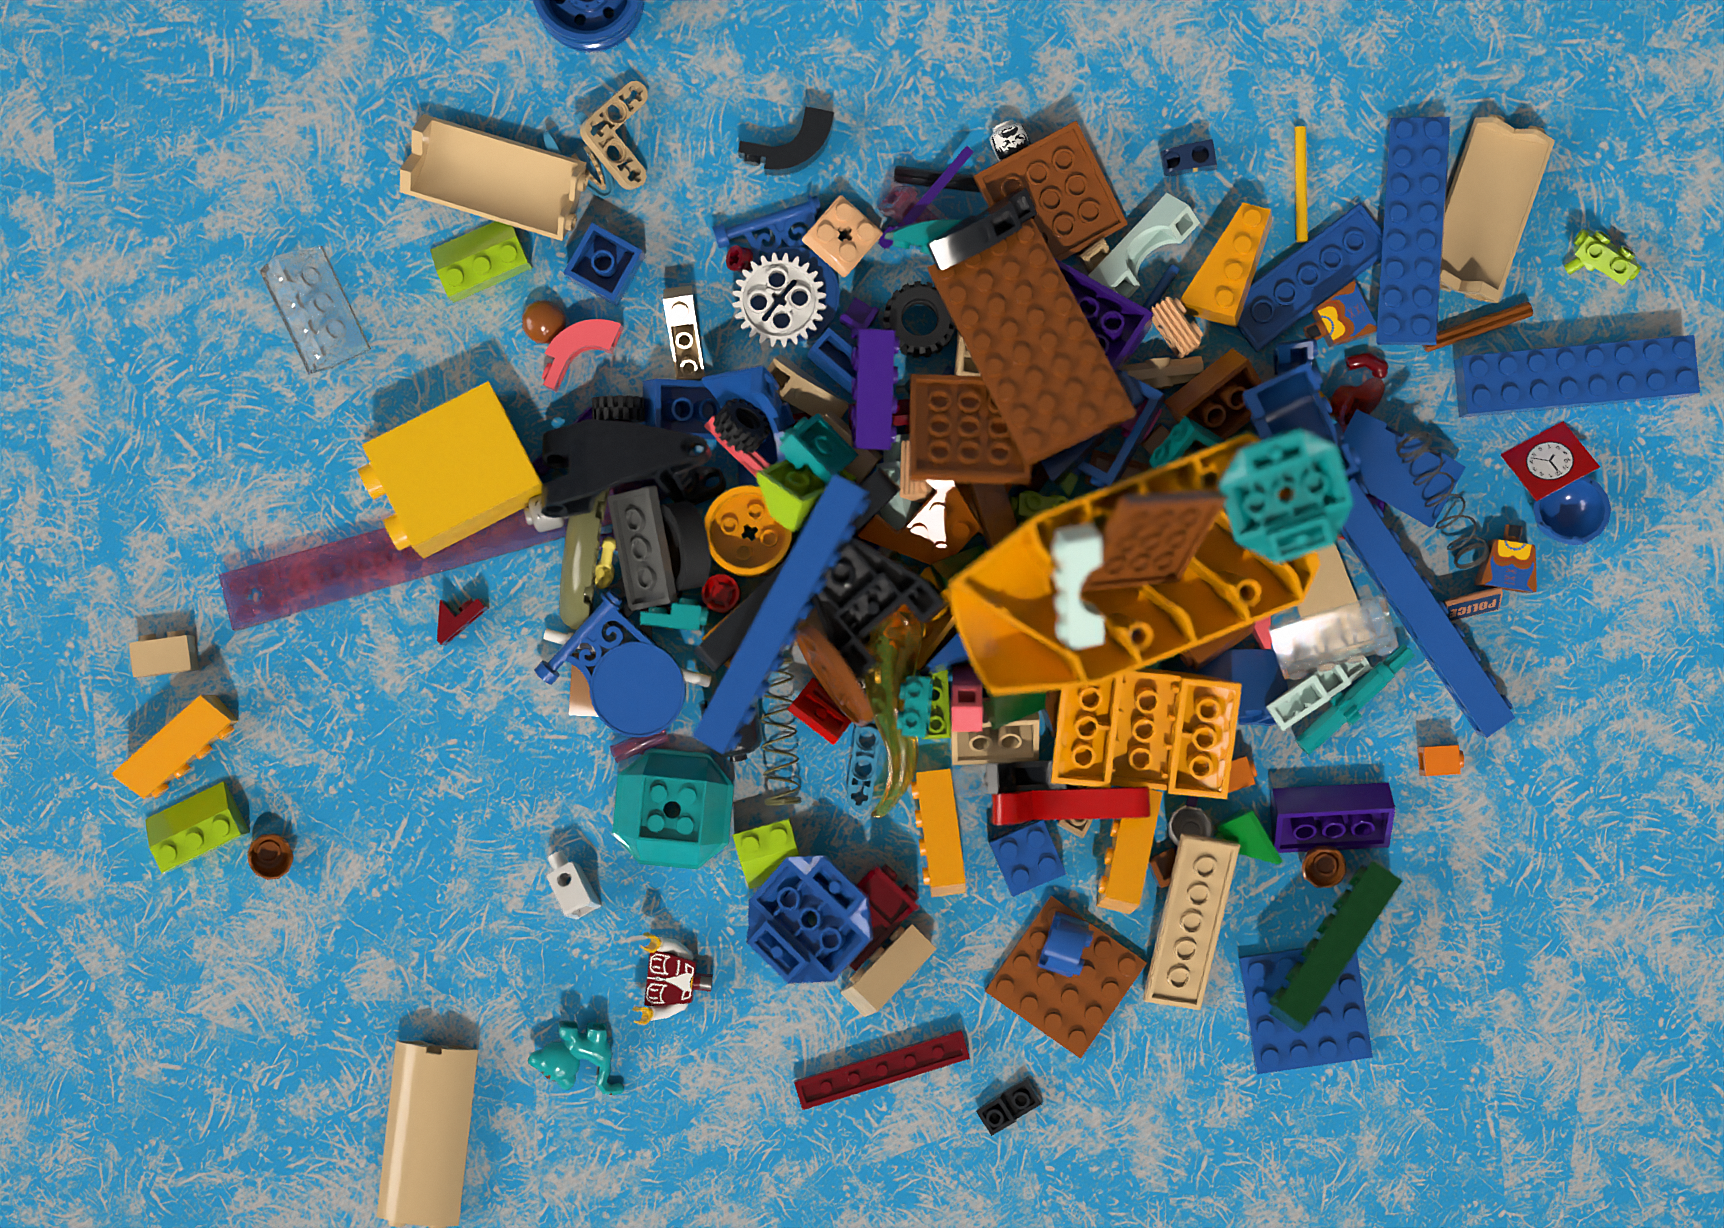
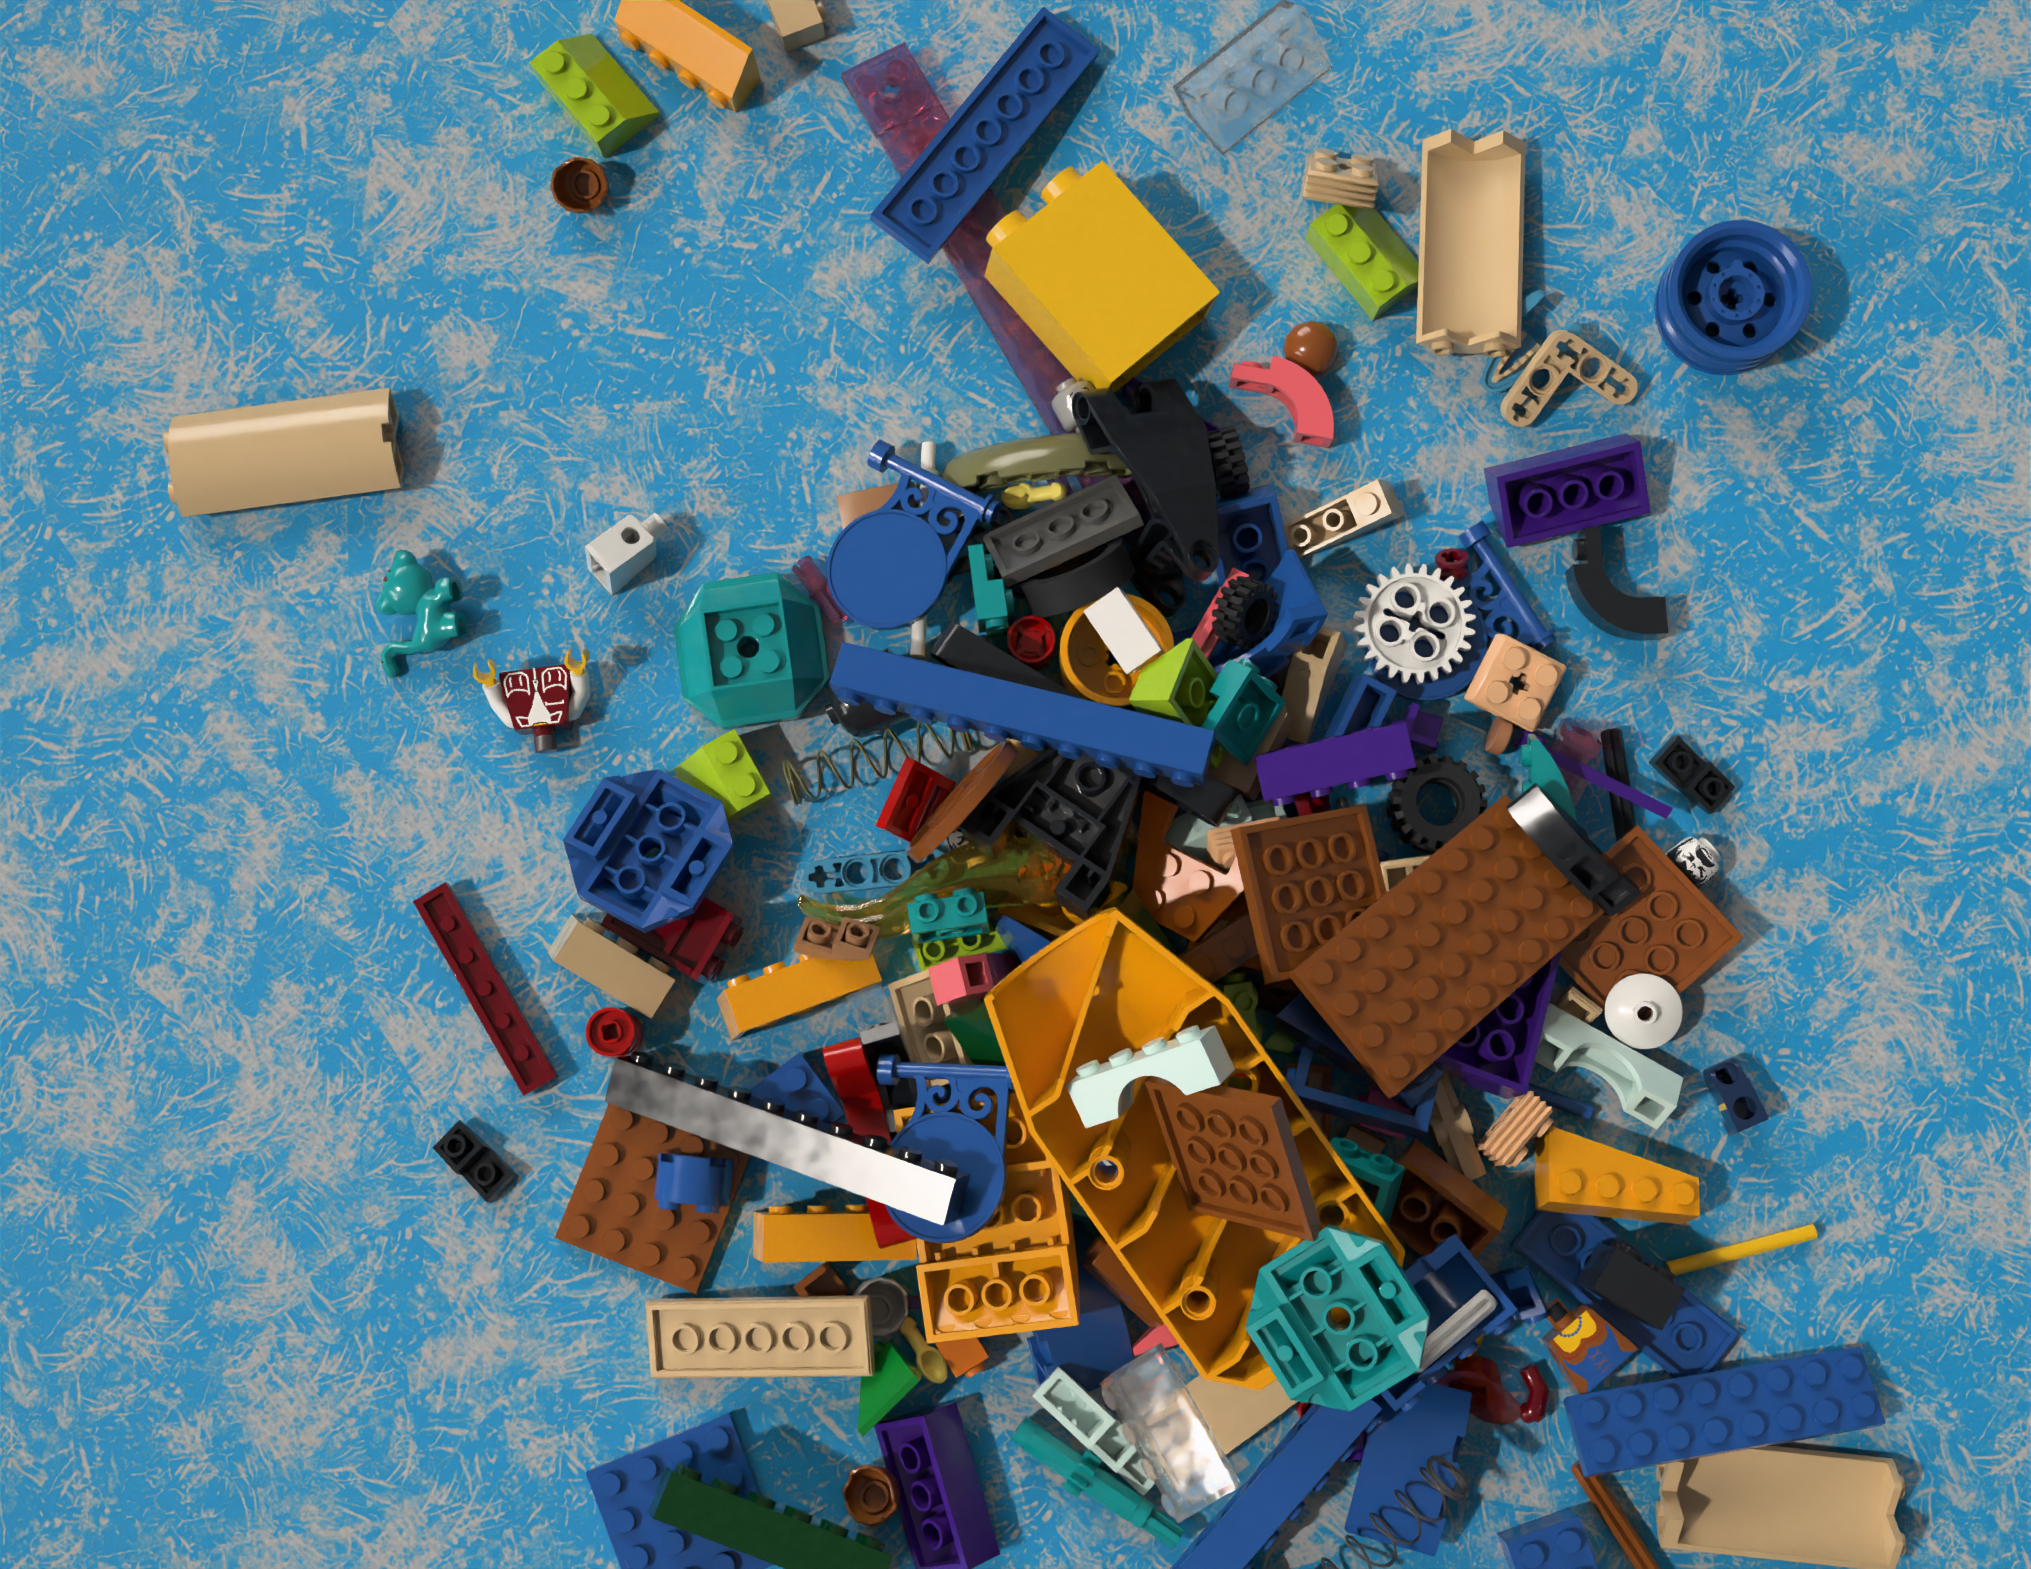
camera: 75 degrees right, 5 degrees down
(311, 529) = (984, 135): none -> blue plate
(418, 264) = (1340, 180): none -> tan brick
(452, 624) = (913, 330): dark red slope -> none
(604, 264) = (1401, 401): blue brick -> none
(704, 156) = (1568, 489): none -> dark purple slope
(737, 521) = (1124, 631): none -> white hinge
(879, 259) = (1498, 736): none -> nougat tile
(916, 788) = (830, 941): none -> medium nougat slope
(940, 979) = (614, 1032): none -> red wheel
(943, 123) = (1691, 775): none -> black slope
(1052, 866) = (789, 1138): none -> brick
(1097, 212) = (1632, 994): none -> white dish
(1105, 755) = (955, 1138): none -> blue piece
(1236, 801) = (928, 1359): none -> light yellow piece
(1309, 408) = (1456, 1327): none -> white axle
(1313, 268) = (1631, 1286): none -> black brick

